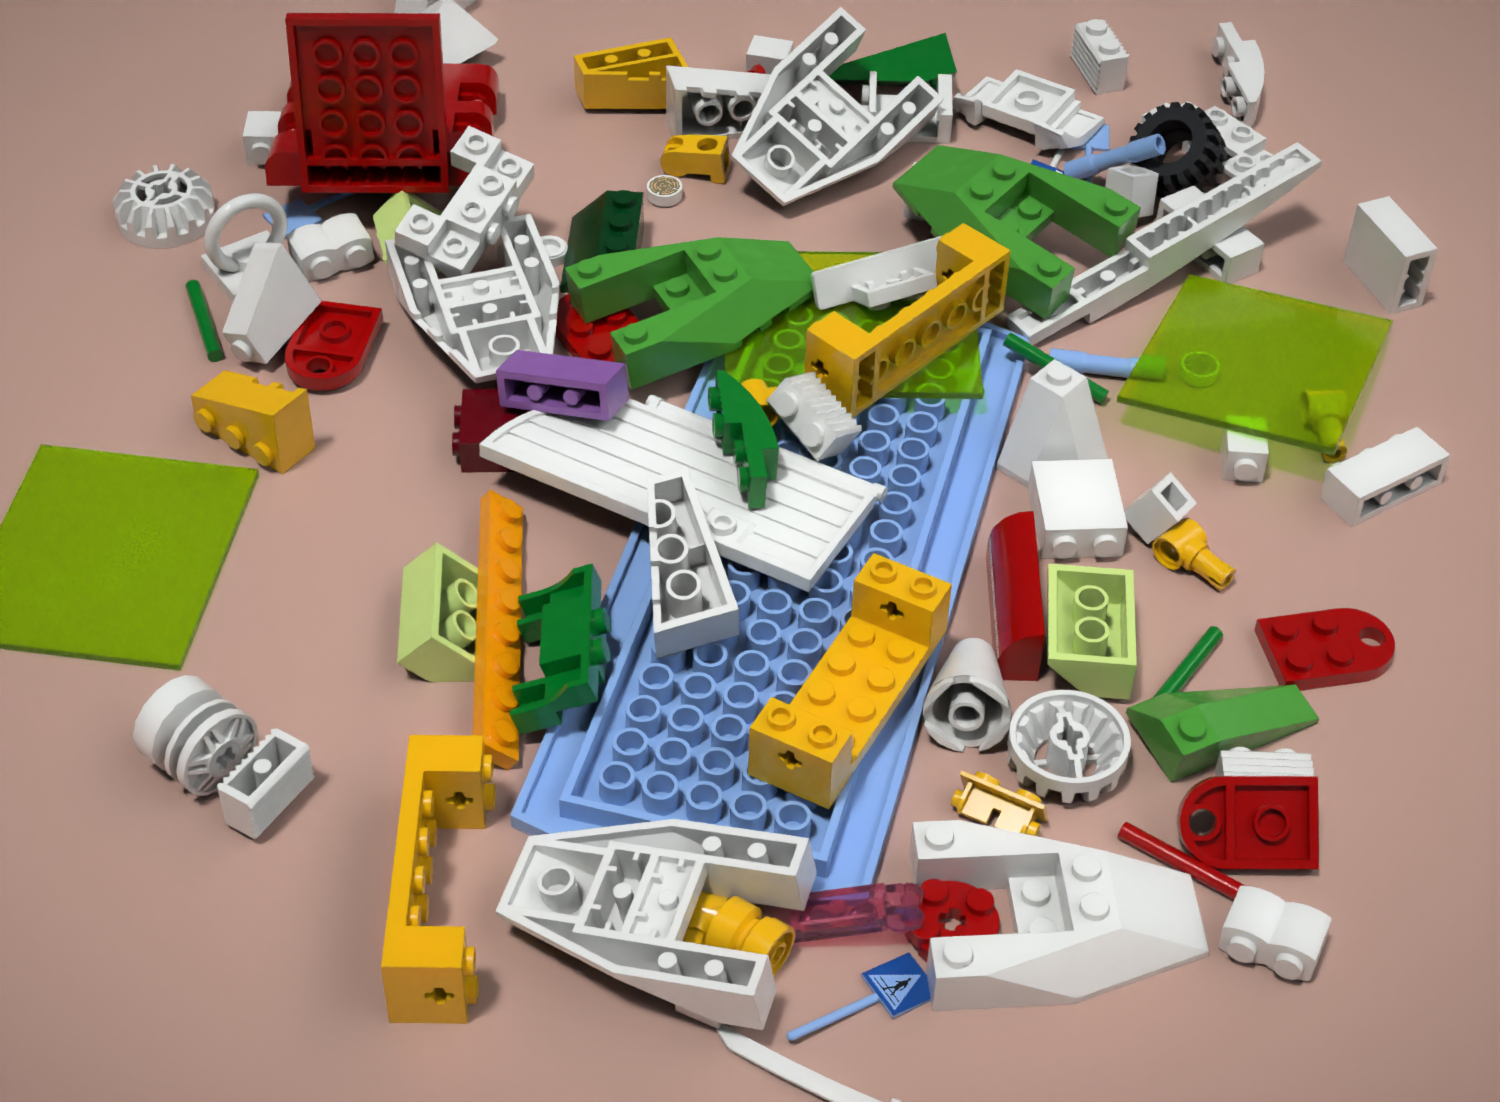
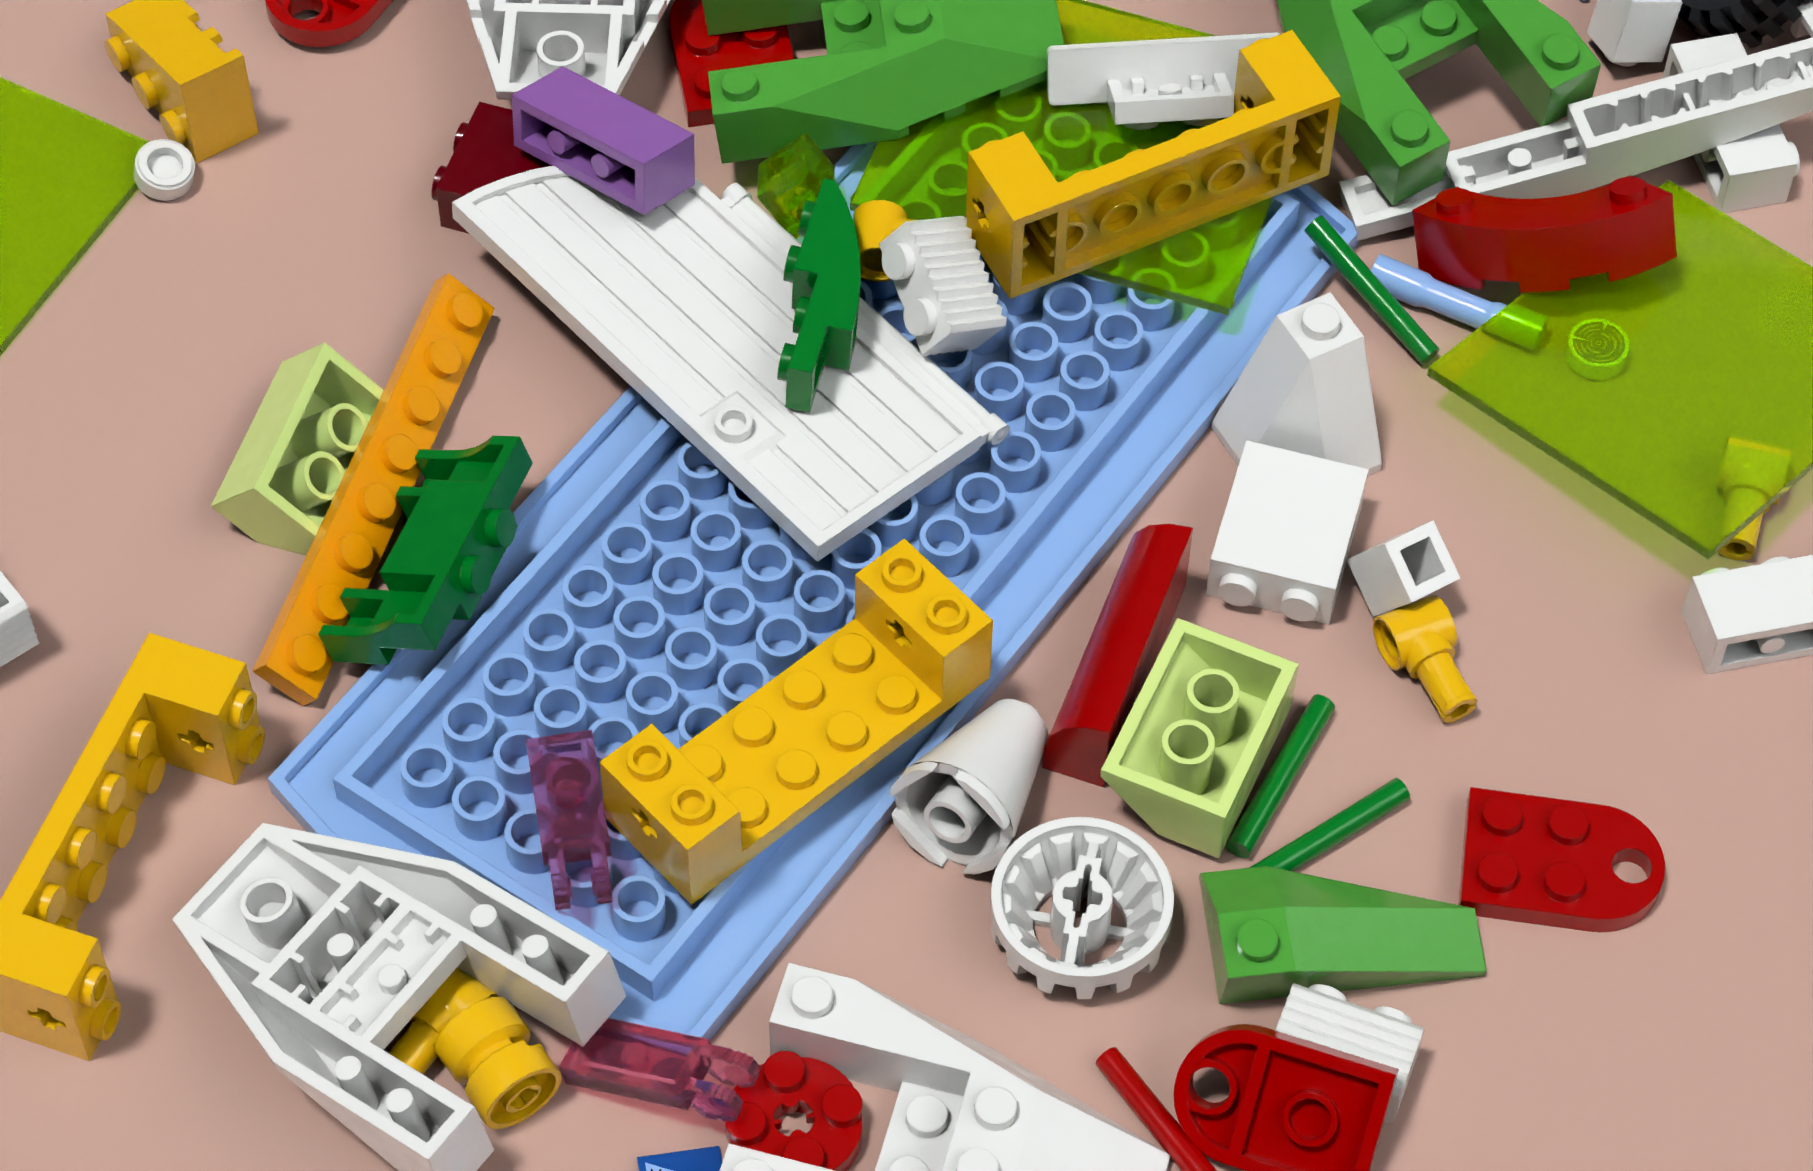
camera: 20 degrees right, 10 degrees up
(265, 480) = (164, 169): none -> white tile
(686, 387) = (791, 179): none -> clear neon green brick
(688, 579) = (636, 498): white wedge -> none
(730, 774) = (570, 811): none -> clear pink hinge
(984, 795) = (964, 985): yellow hinge -> none
(1143, 624) = (1280, 776): none -> green bar
(1147, 313) = (1545, 240): none -> red brick
(1243, 456) = (1584, 519): white brick -> none

